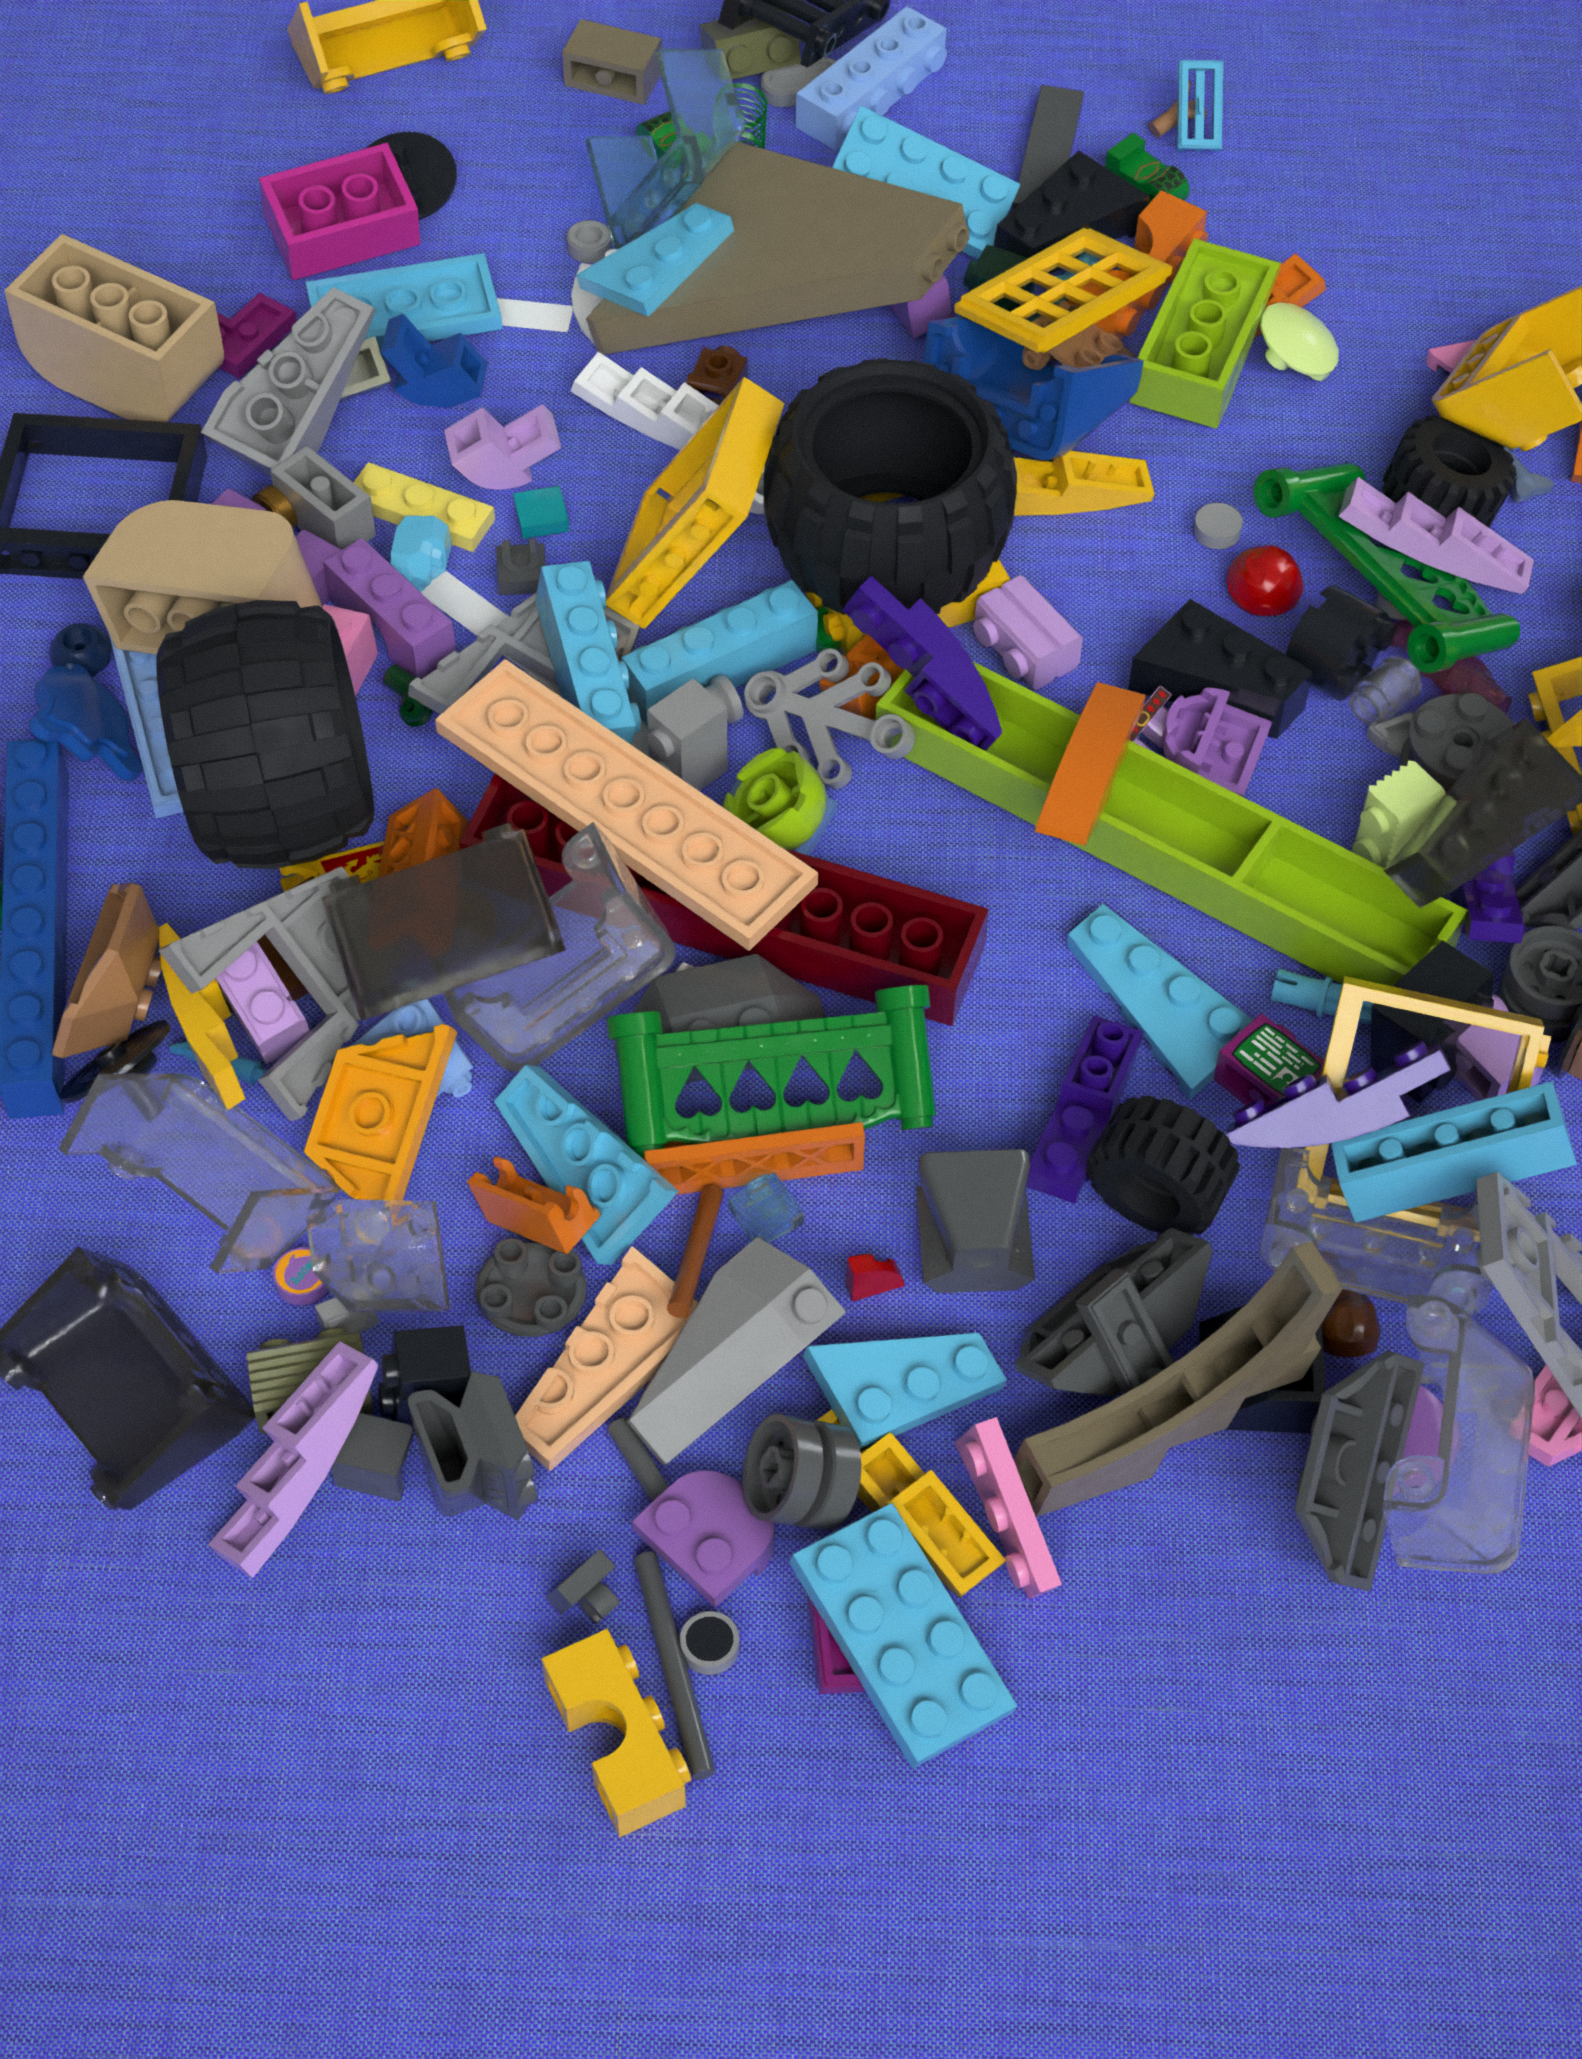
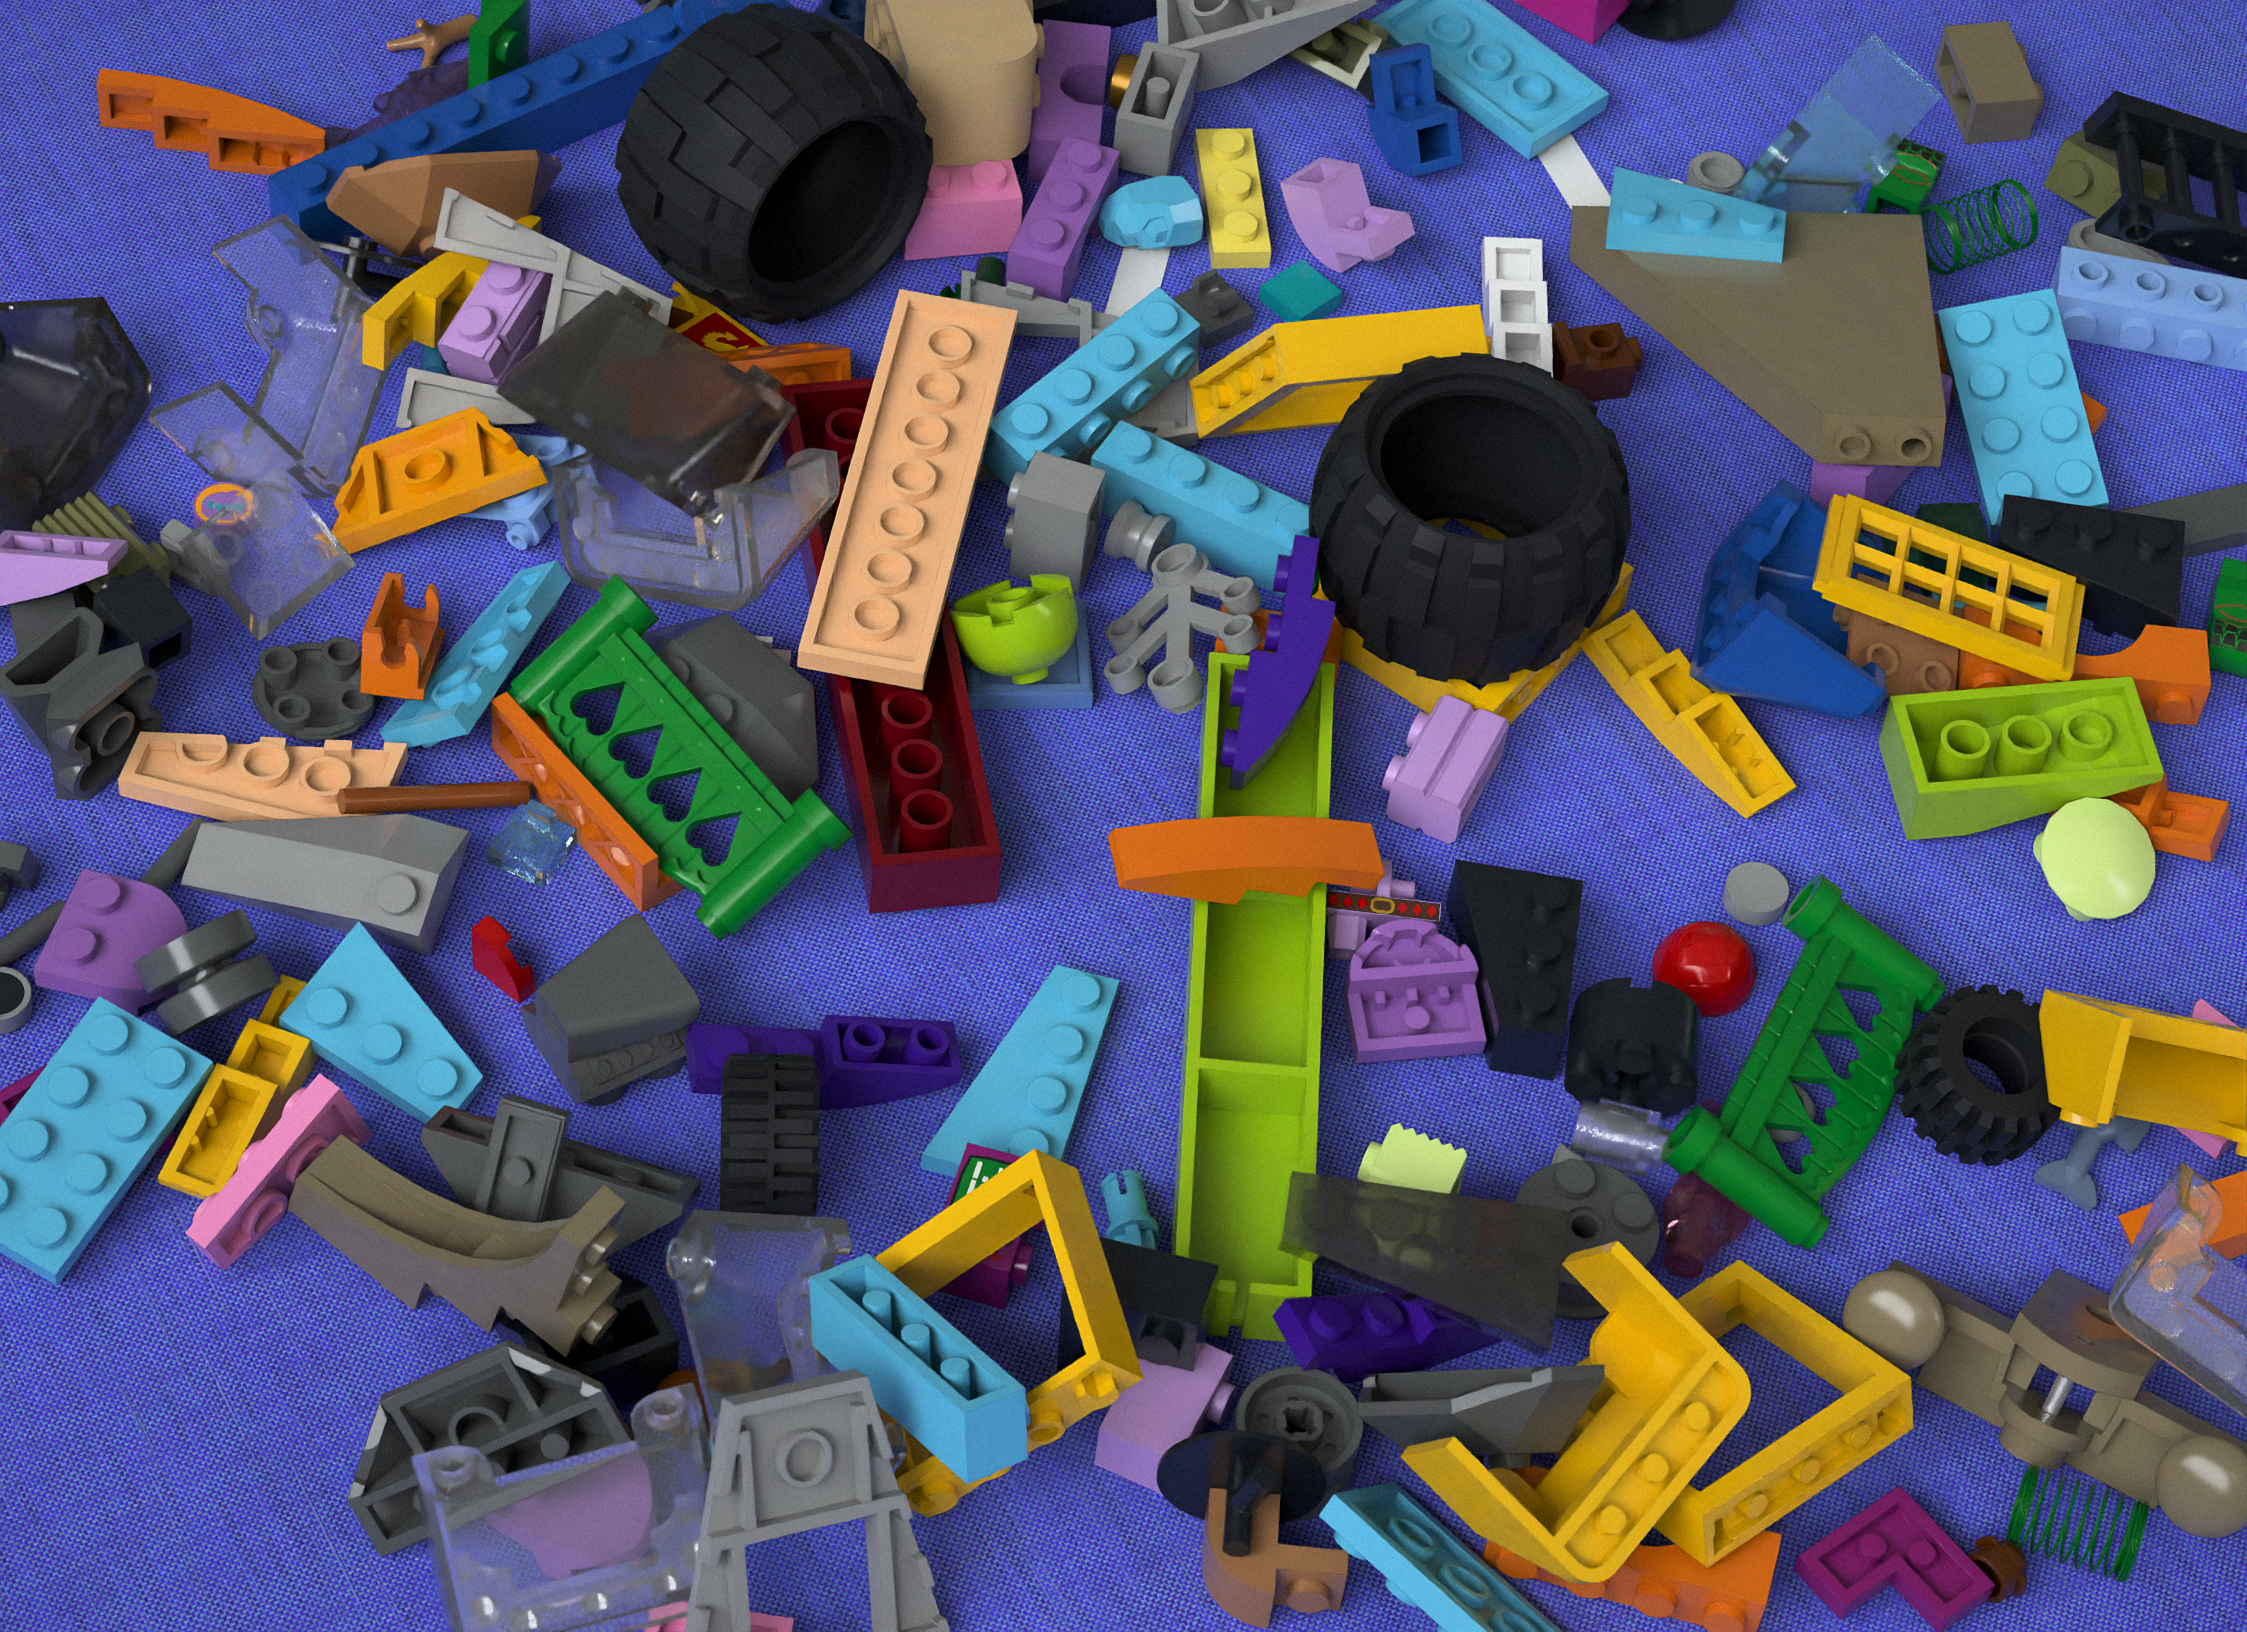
camera: 55 degrees right, 5 degrees down
(1319, 1115) = (908, 1234): slope -> none
(1448, 544) = (1874, 1094): lavender slope -> none

